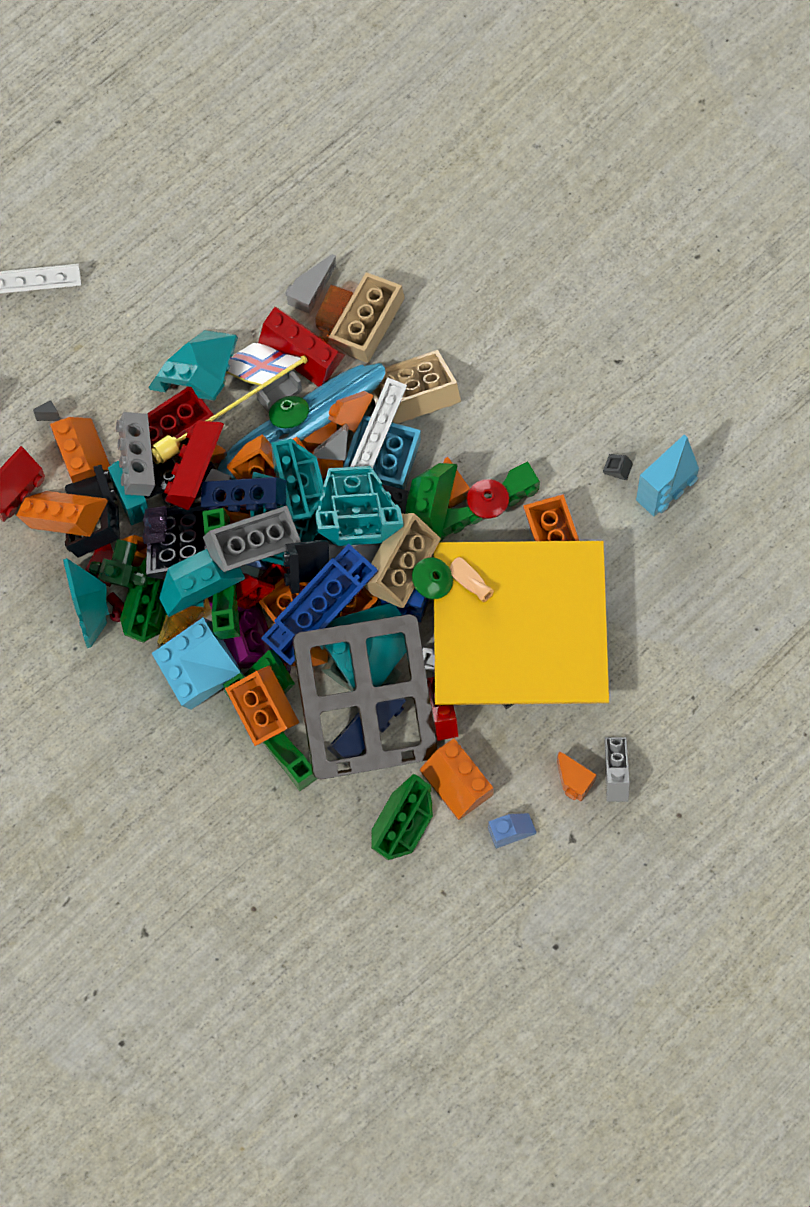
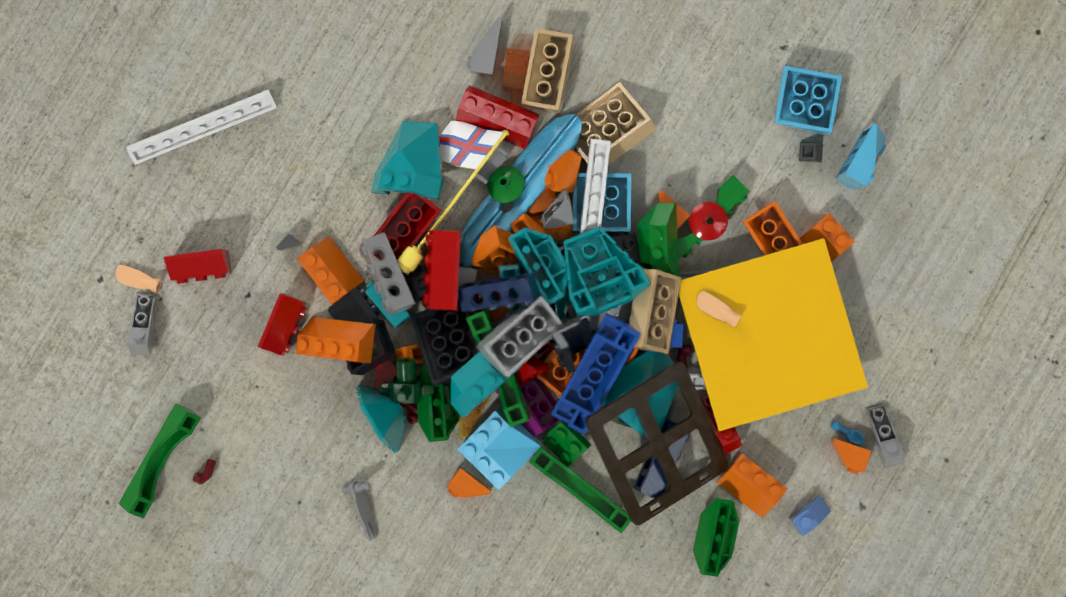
camera: 15 degrees left, 20 degrees up
(32, 689) = (362, 506): none -> light grey piece
(149, 697) = (466, 485): none -> orange slope
(155, 525) = (423, 332): clear purple slope -> none
(262, 705) = (570, 473): orange slope -> none
(424, 625) = (685, 350): none -> dark red arm
(426, 584) = (678, 321): green dish -> none
(580, 757) = (852, 435): none -> dark azure piece
(617, 551) = (835, 236): none -> orange slope
(626, 411) = (807, 100): none -> medium azure slope

